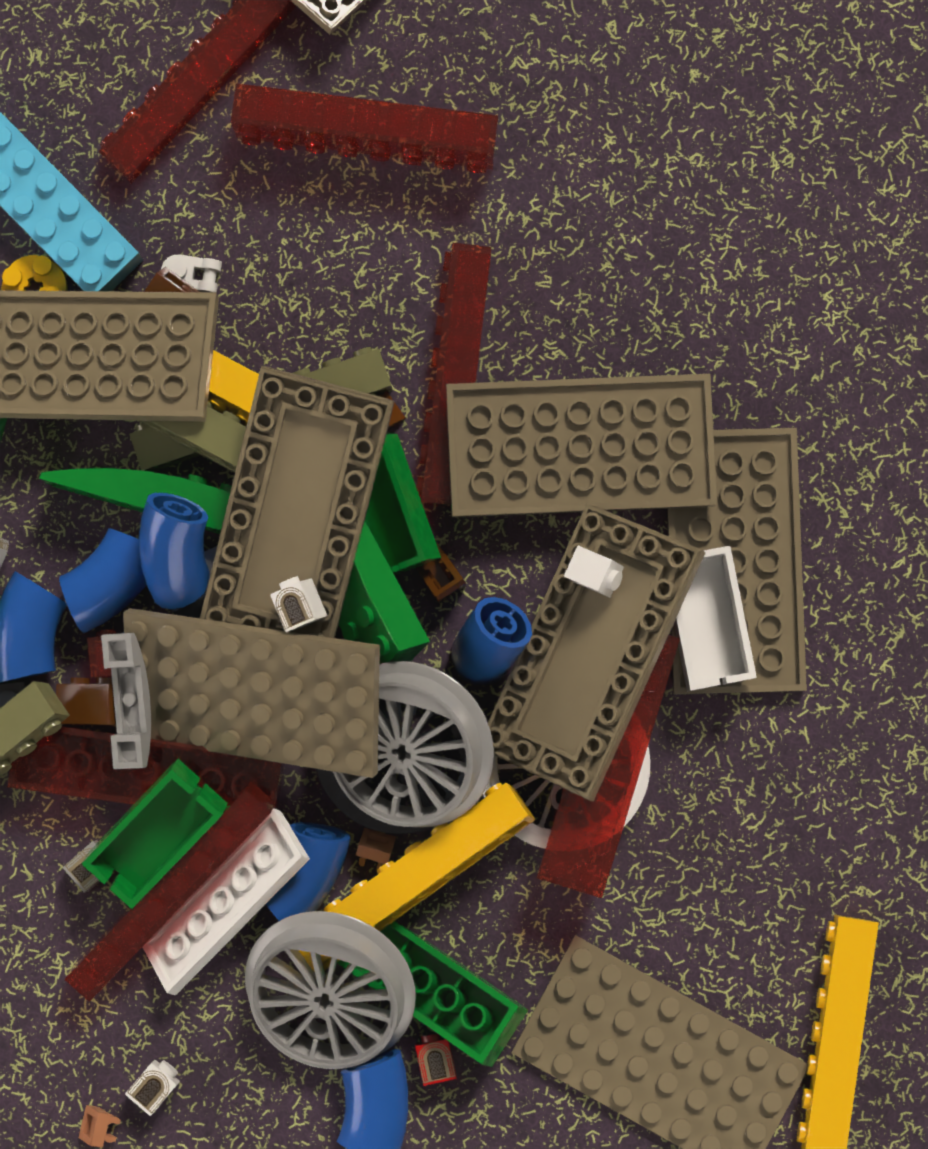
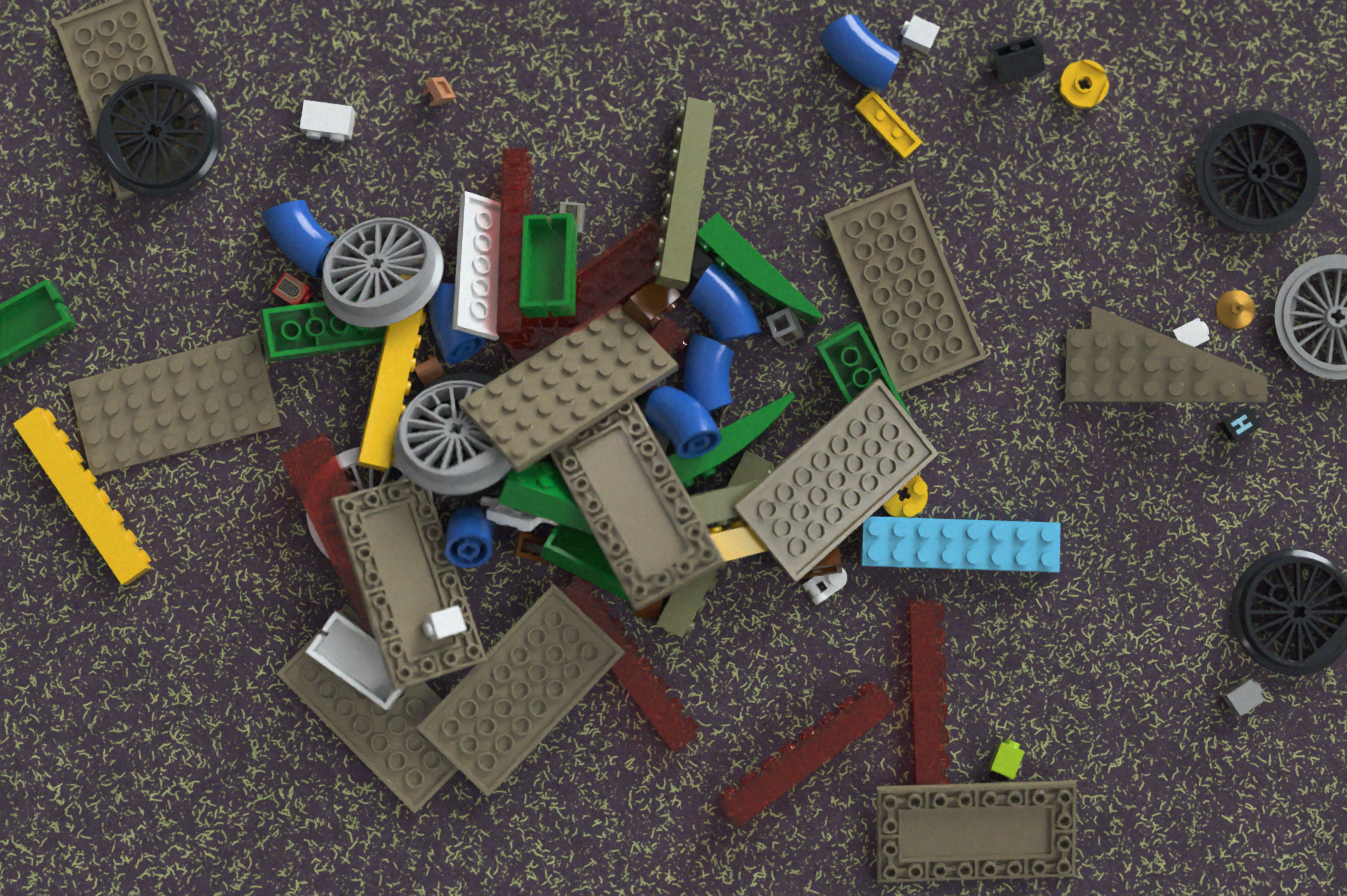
camera: 130 degrees right, 0 degrees up
(131, 700) = (630, 322): light grey slope -> none
(153, 1086) = (428, 138): brick -> none
(298, 603) = (585, 454): brick -> none
(434, 624) = (510, 516): none -> white plate

